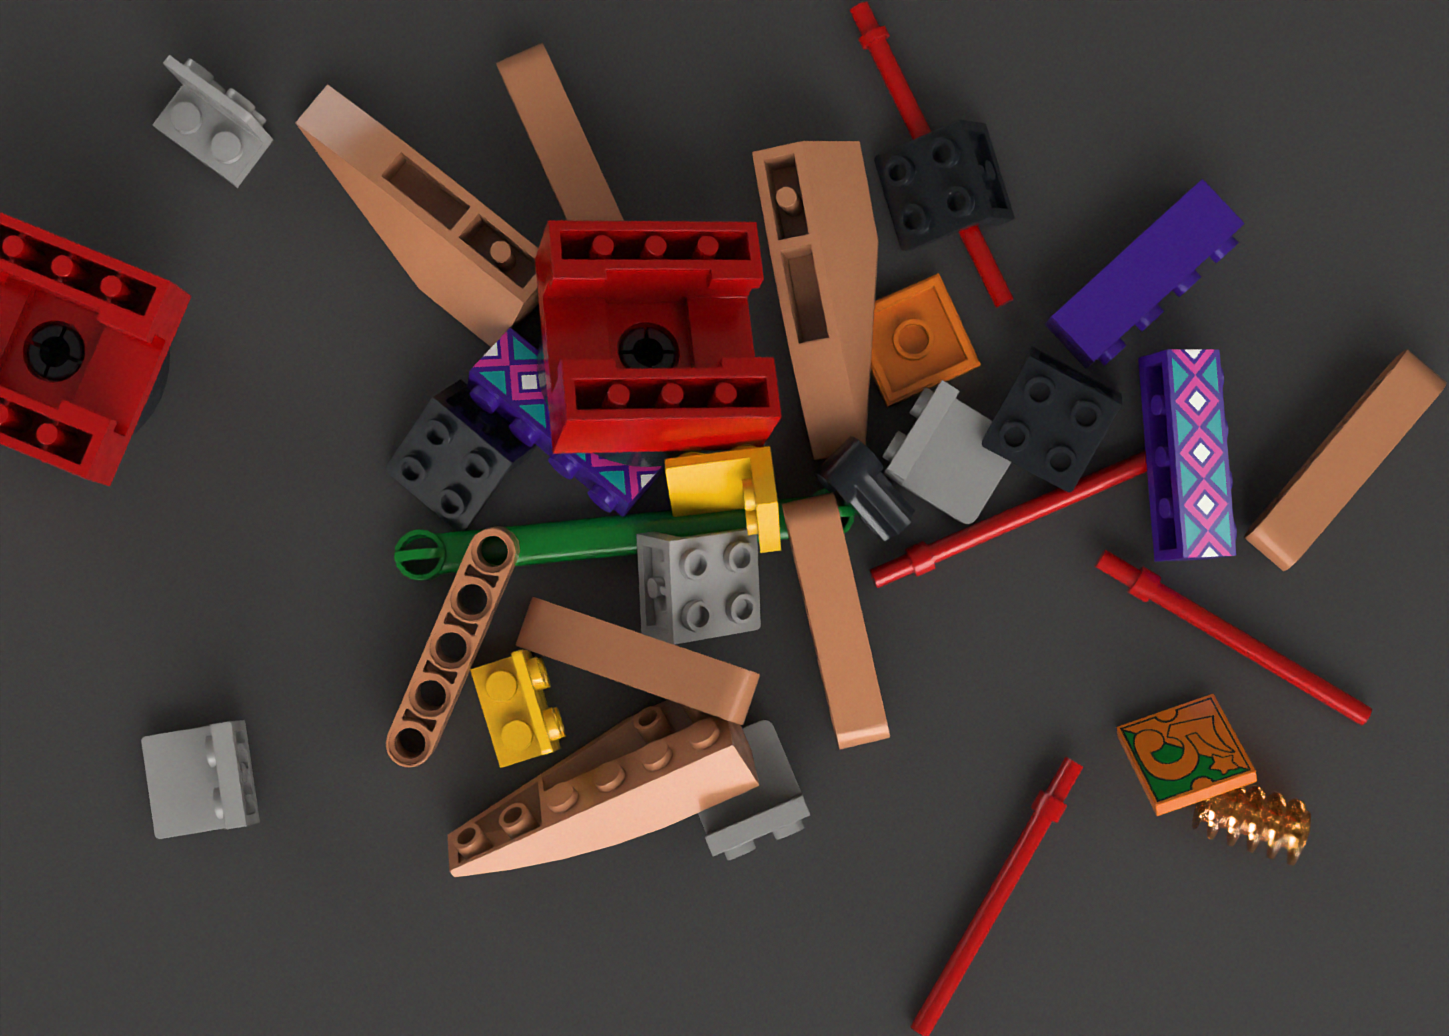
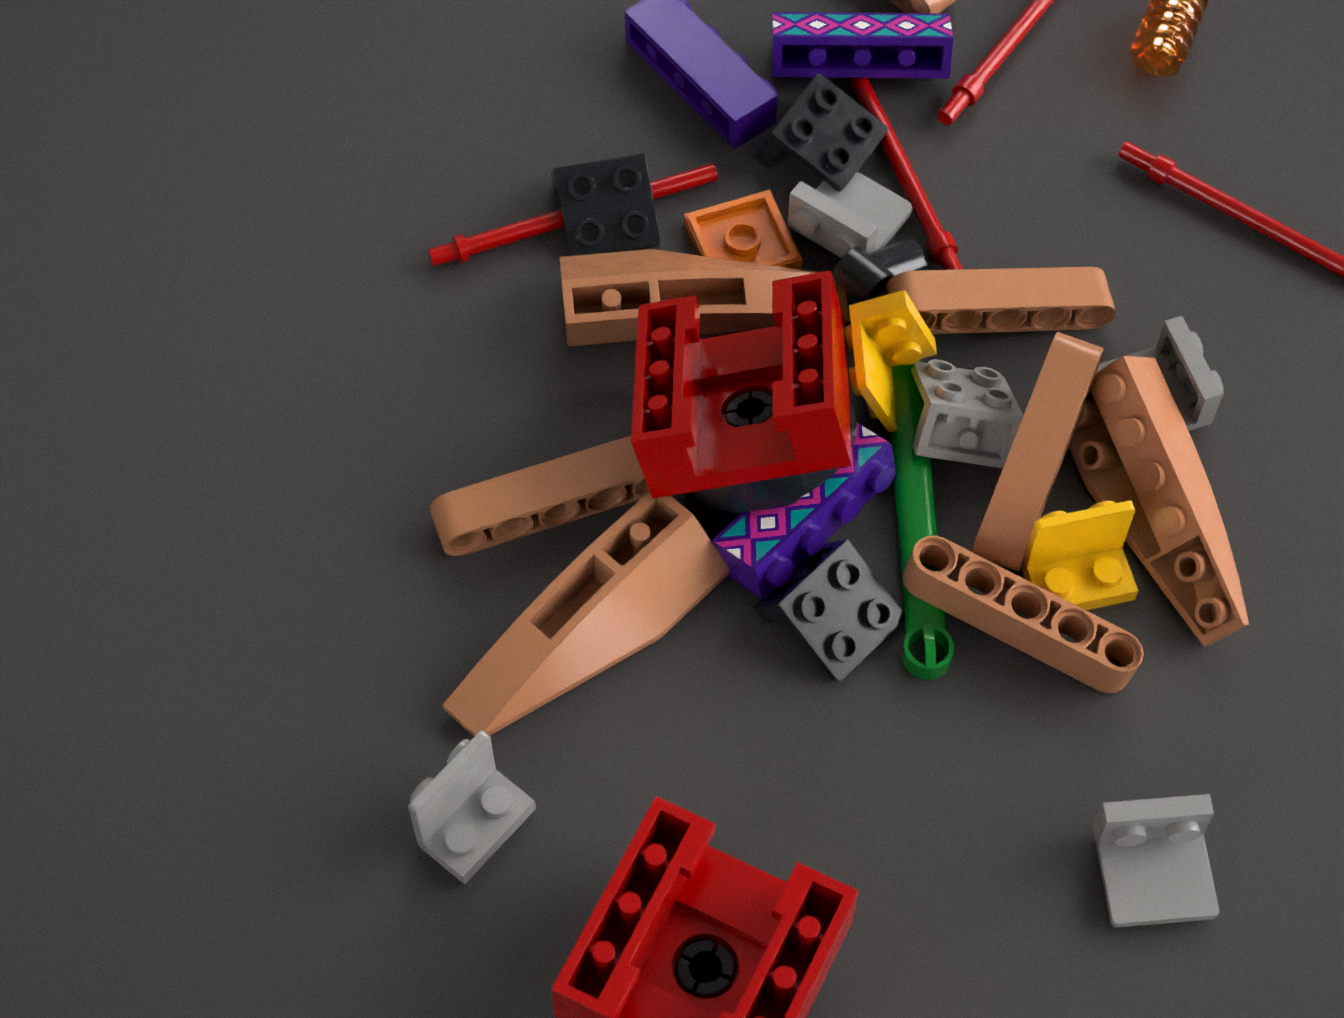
camera: 90 degrees left, 25 degrees down
(1186, 754) = (1117, 62): tile -> none

